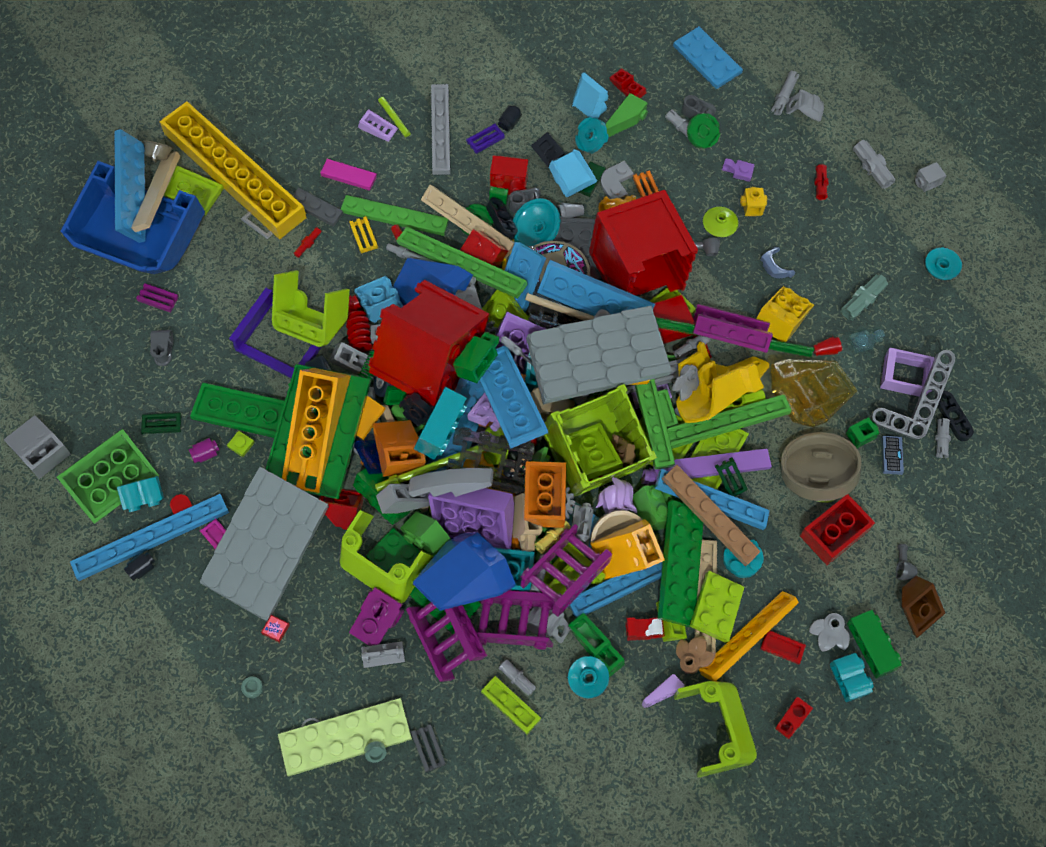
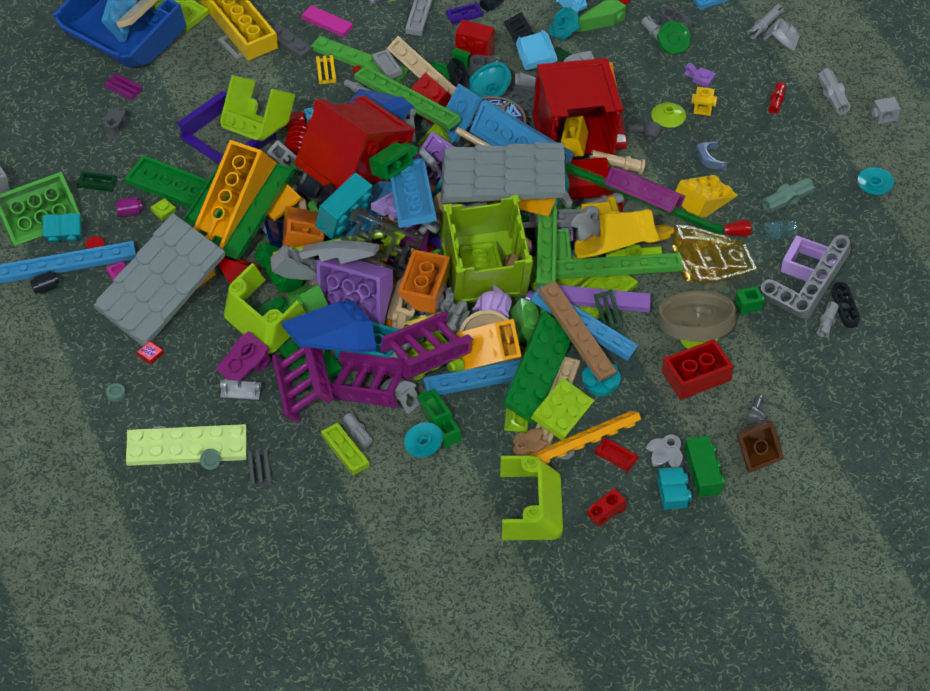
camera: 15 degrees right, 15 degrees down
(307, 242) = (272, 66): red bar -> none
(393, 395) = (309, 190): green tile -> none
(426, 219) = (387, 64): none -> light grey tile
(644, 629) = (488, 414): red leg -> none
(645, 281) = (575, 135): none -> yellow brick
(665, 690) = (487, 465): lavender slope -> none
(698, 292) = (626, 163): none -> tan pin
(892, 455) = (773, 325): tile -> none

